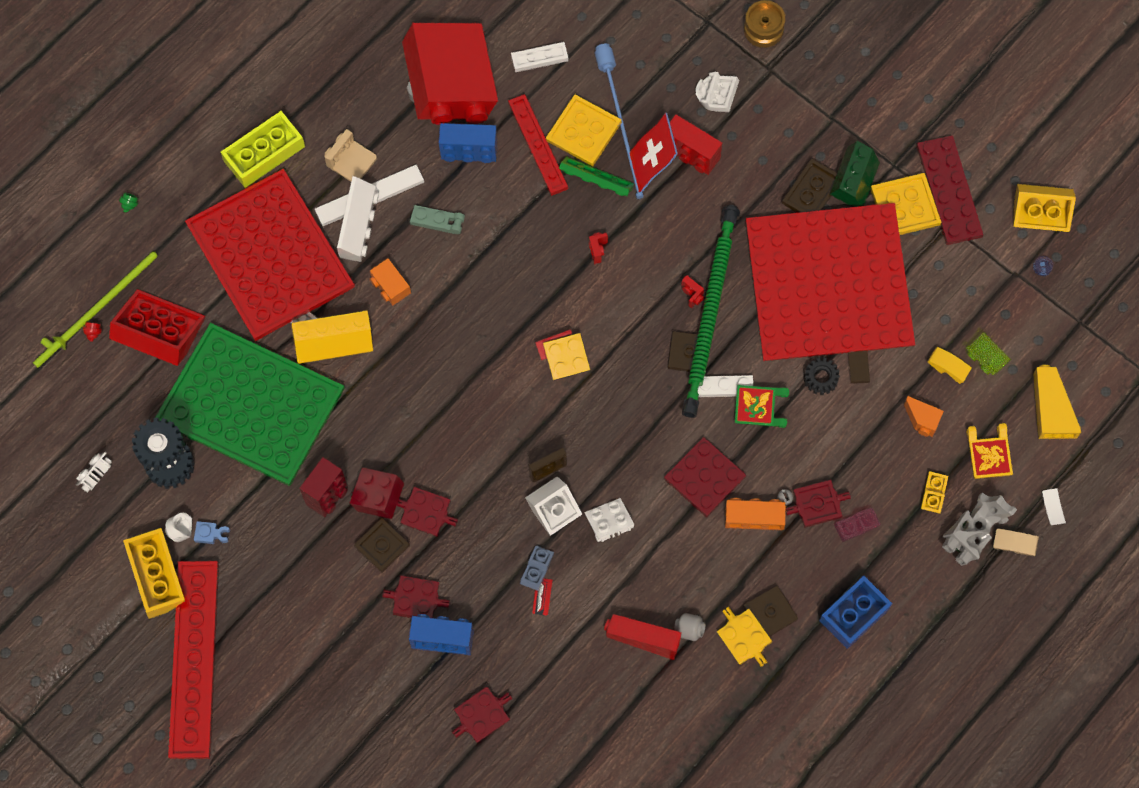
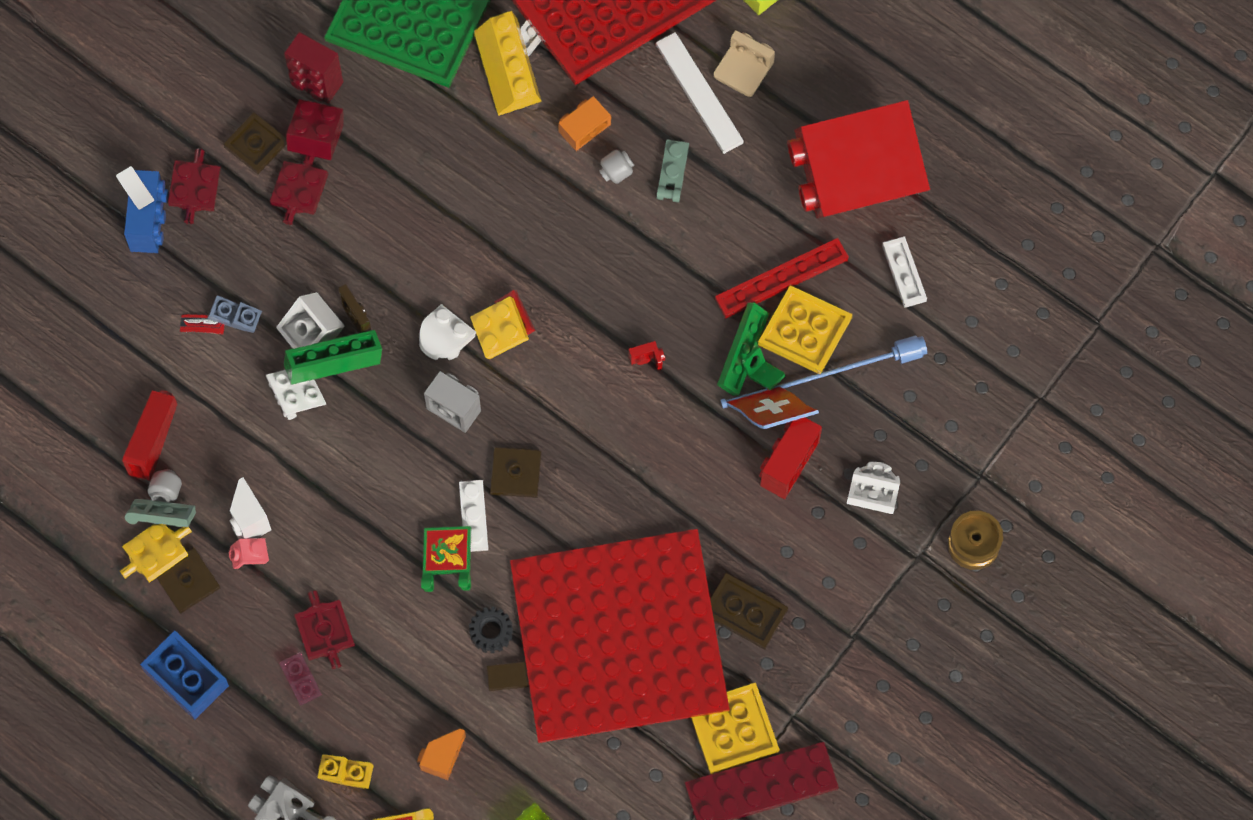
camera: 85 degrees right, 0 degrees up
(357, 219) = (657, 75): white slope -> none
(427, 635) = (134, 188): none -> white sticker
(431, 259) = (616, 166): none -> light grey head
(468, 142) = (770, 193): blue brick -> none
(481, 715) = (58, 266): dark red plate -> none
(567, 400) = (444, 334): none -> white slope
(587, 484) = (332, 357): none -> green brick
(617, 162) = (761, 371): none -> green bracket
(631, 391) = (453, 401): none -> light grey brick
(690, 288) = (597, 471): red bracket -> none
(705, 477) = (355, 498): dark red plate -> none
(710, 311) = (695, 509): green hose -> none
(714, 629) = (160, 513): none -> sand green plate
(719, 557) = (248, 516): none -> white slope
(749, 562) = (248, 552): none -> coral bracket
(755, 514) = (307, 555): orange brick -> none
(781, 496) = (334, 596): light grey hinge -> none
(855, 175) = (765, 662): dark green slope -> none
(949, 363) = (514, 785): yellow slope -> none

